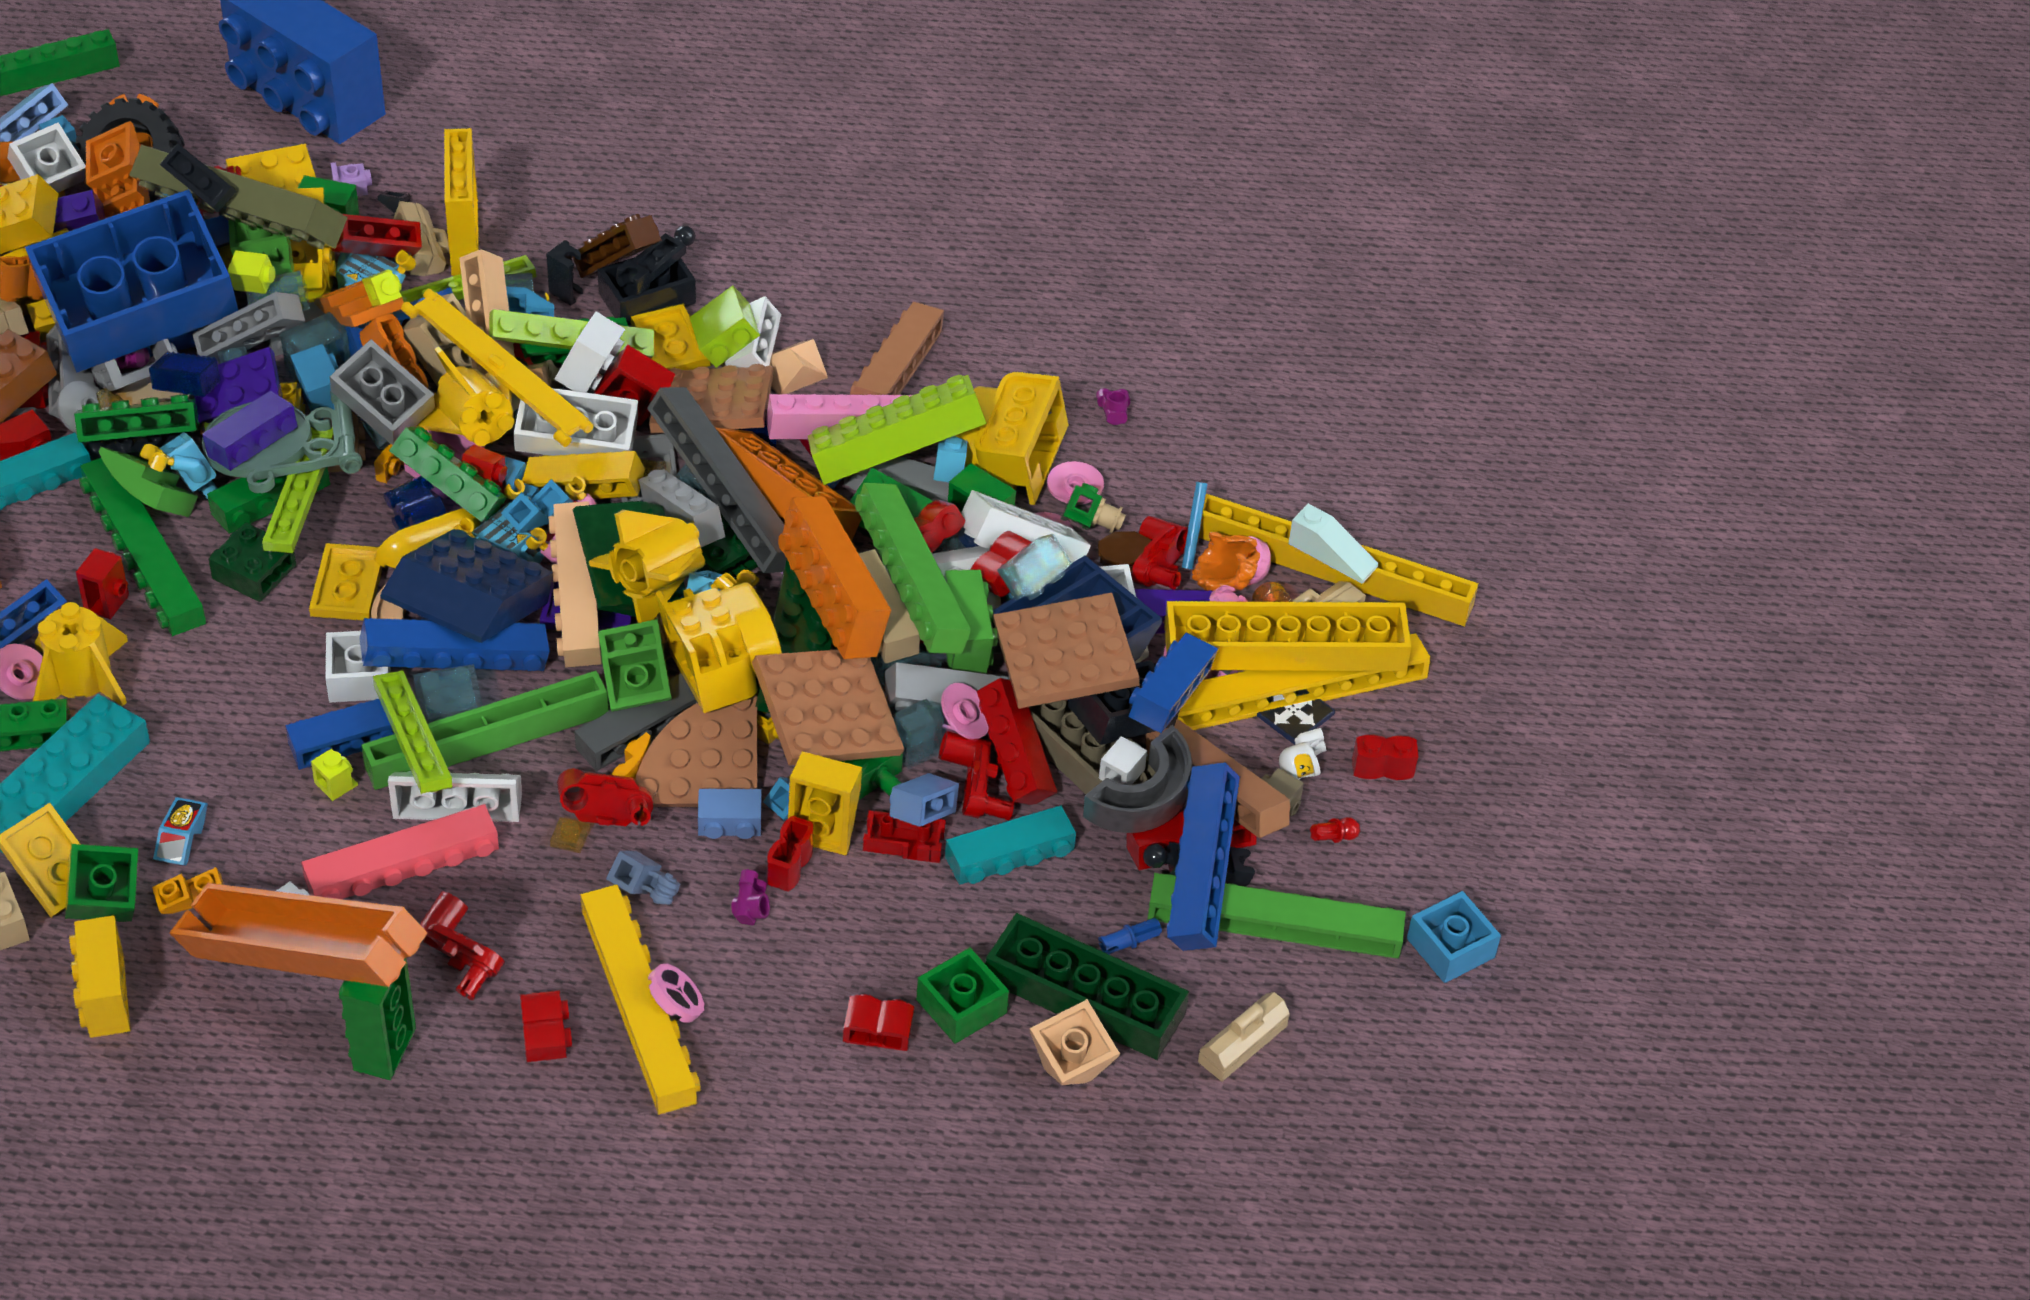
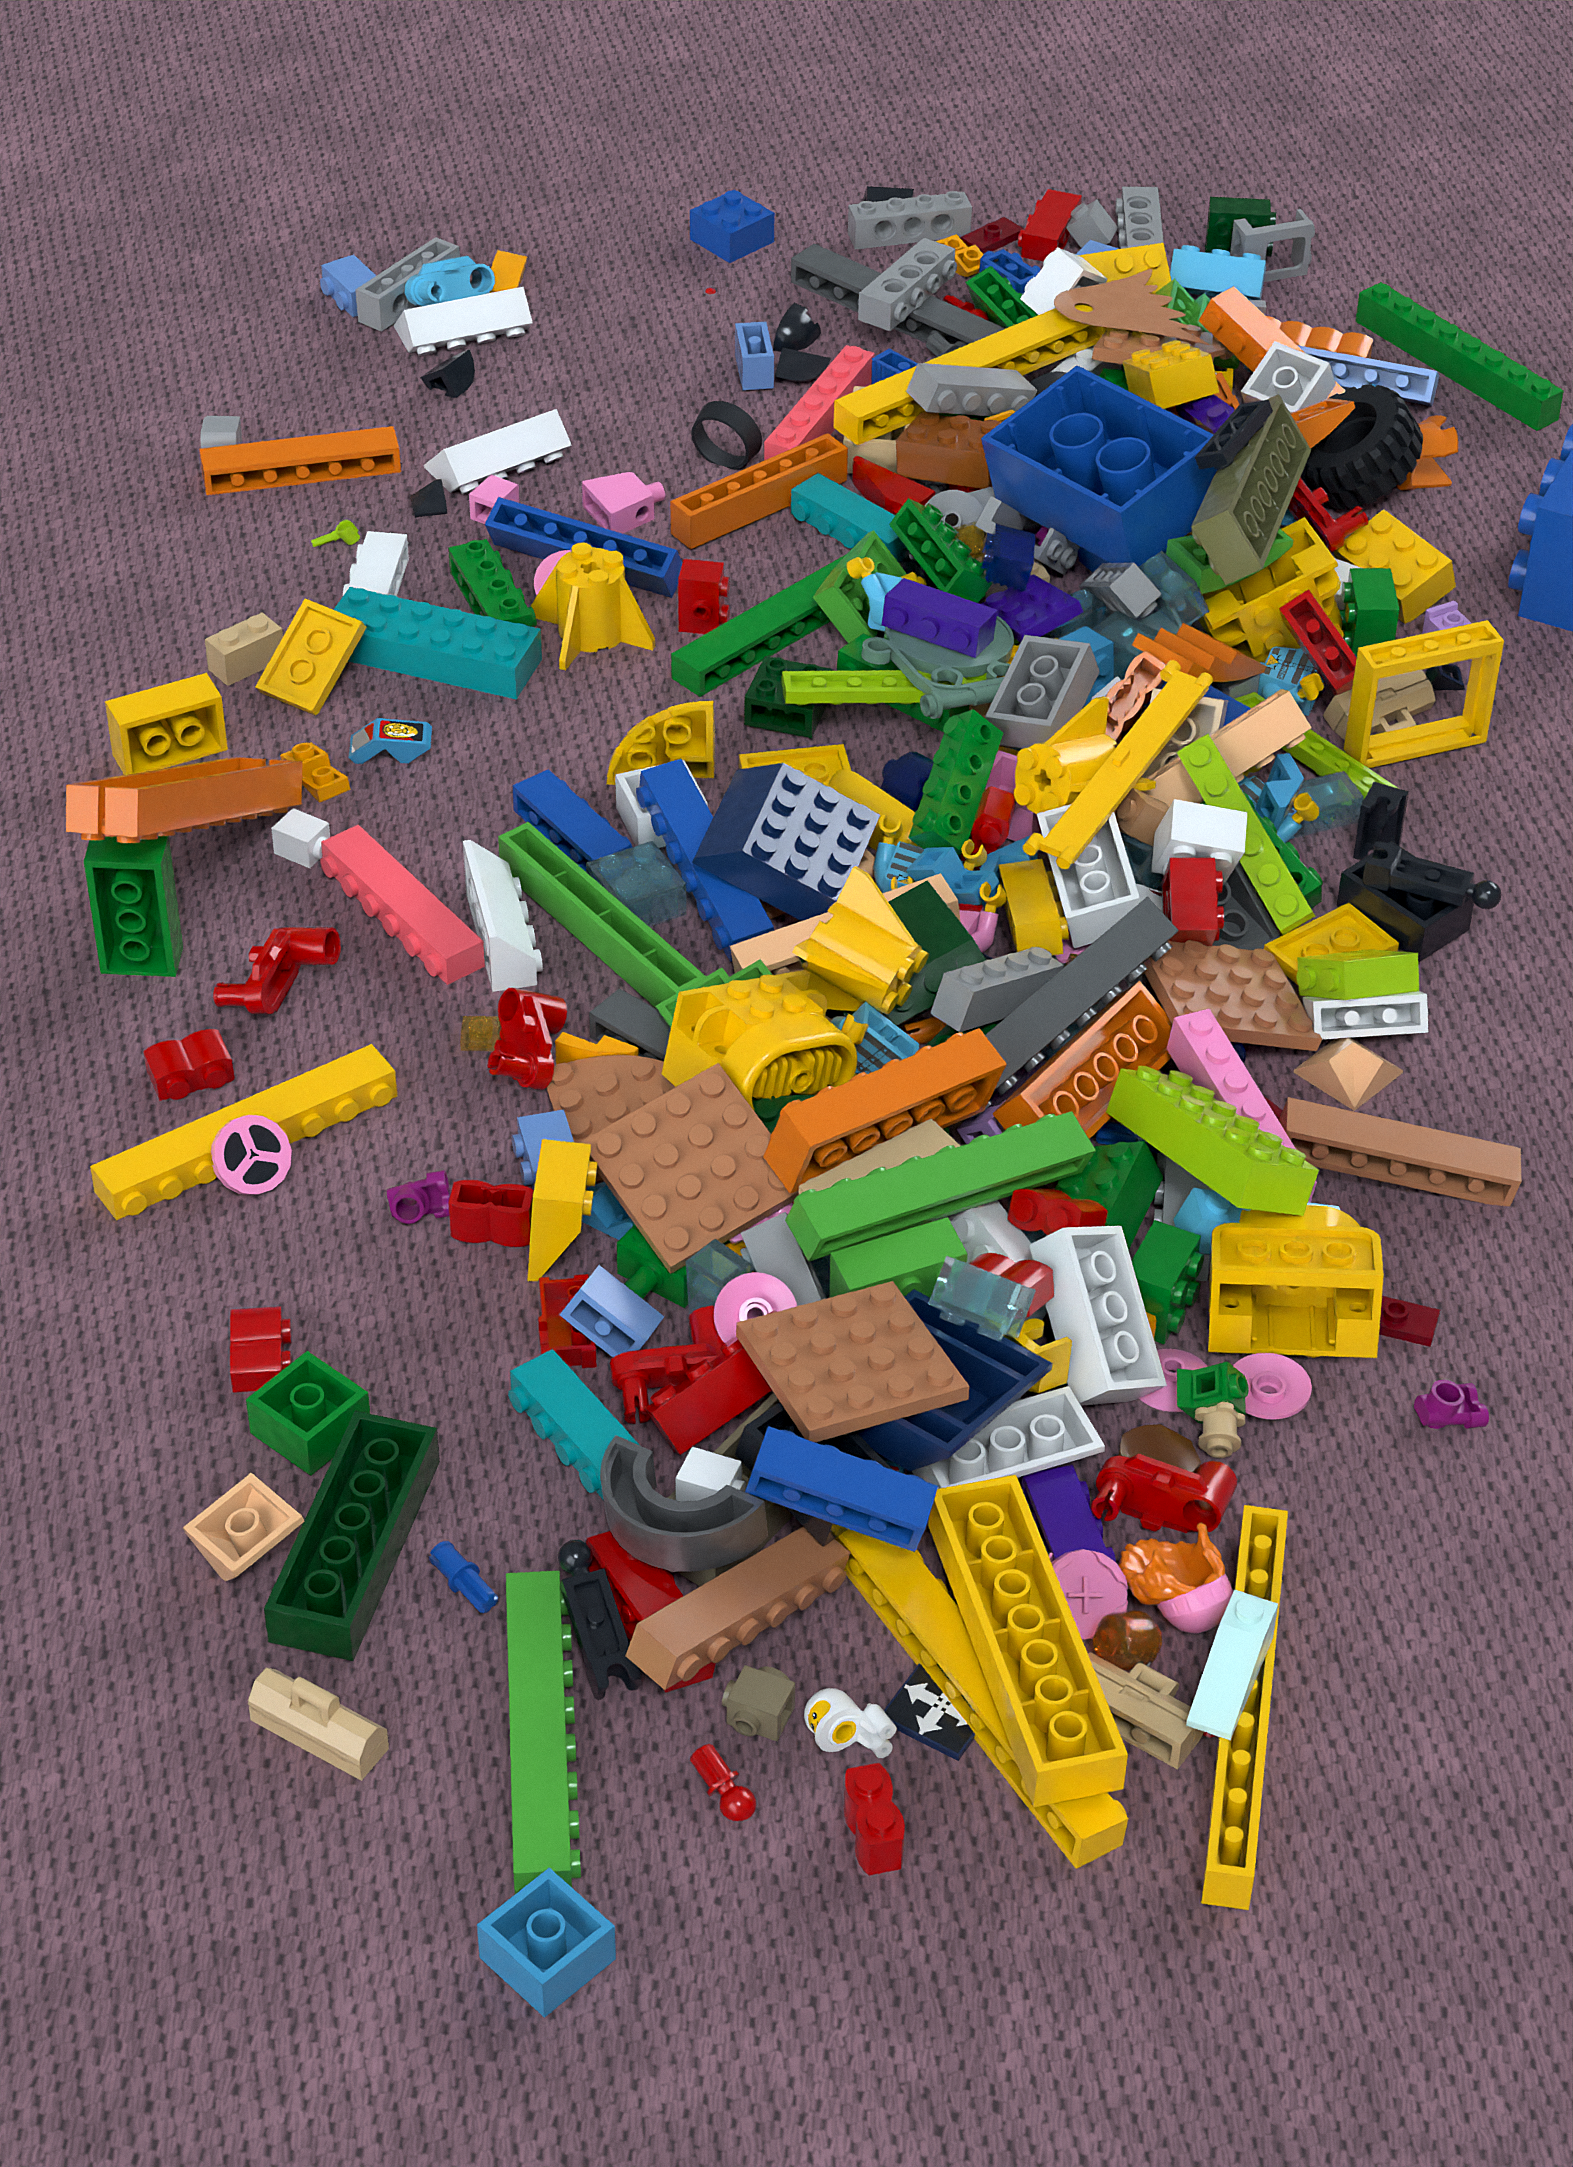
camera: 80 degrees right, 5 degrees down
(101, 882) = (287, 695): green brick -> none
(251, 272) = (1161, 541): neon yellow brick -> none
(300, 634) = (669, 735): none -> yellow brick
(333, 774) = (494, 820): neon yellow brick -> none
(382, 287) = (1197, 643): neon yellow brick -> none
(412, 732) = (542, 843): lime plate -> none
(617, 244) = (1426, 833): reddish brown brick -> none
(642, 875) = (425, 1091): sand blue brick -> none
(1194, 525) = (1228, 1509): dark azure bar -> none
(1203, 857) = (566, 1592): blue brick -> none

